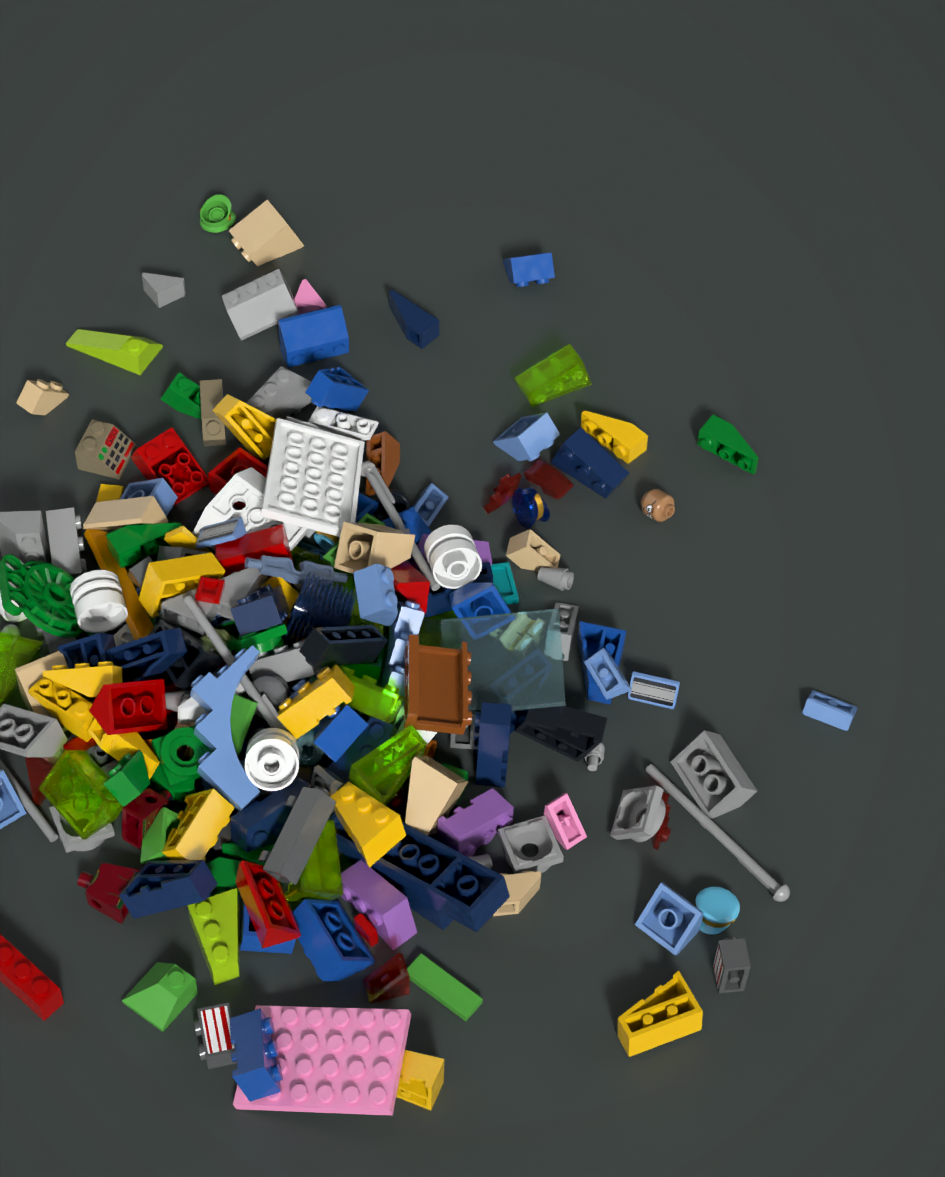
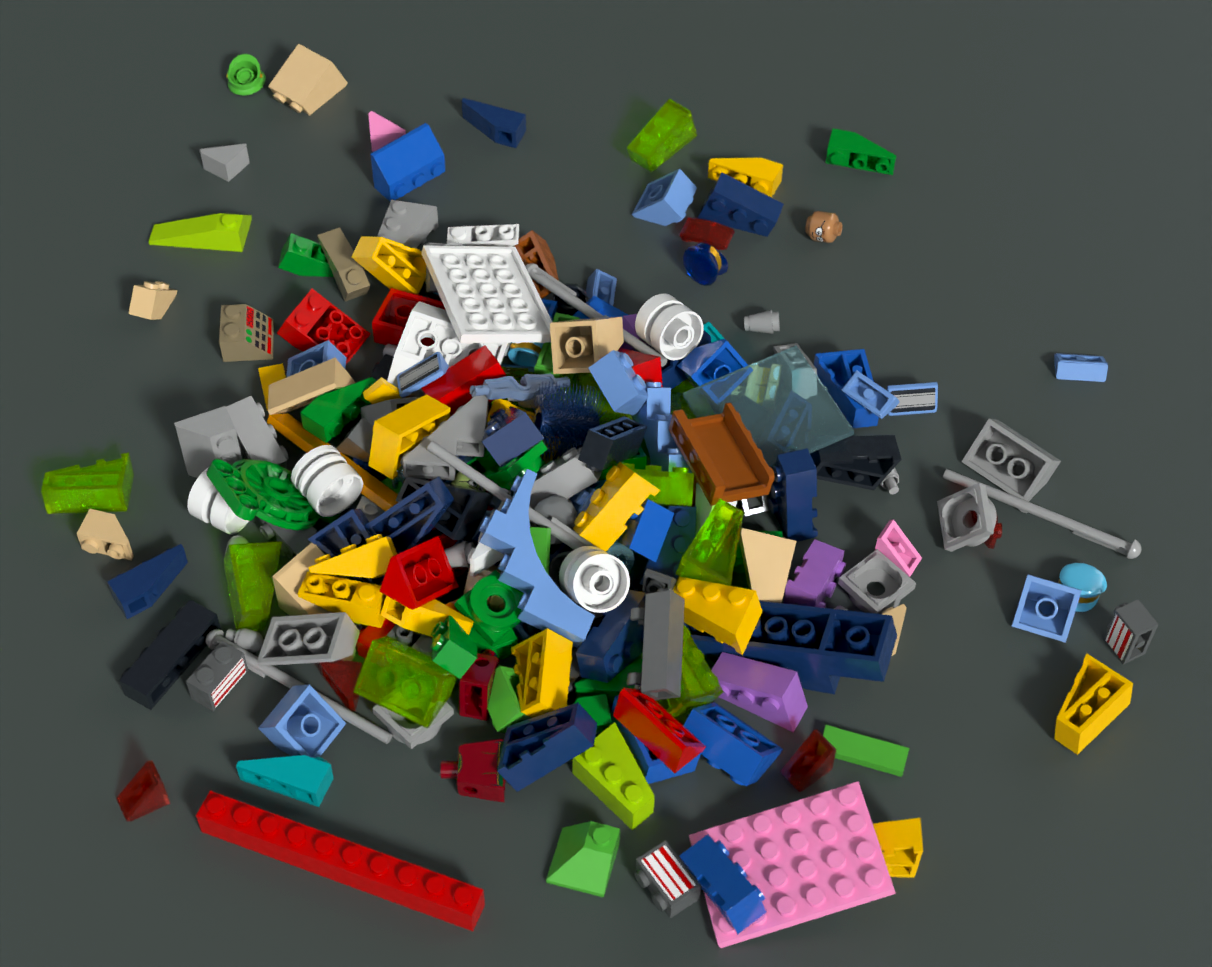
camera: 20 degrees left, 0 degrees up
(210, 590) = (447, 430): red tile -> none
(260, 304) = (338, 147): light grey slope -> none
(336, 390) = (461, 207): blue wedge -> none
(366, 929) = (760, 720): red tile -> none
(503, 492) = (671, 257): clear red slope -> none
(529, 268) = (584, 44): blue slope -> none
(531, 552) = (727, 305): tan slope -> none

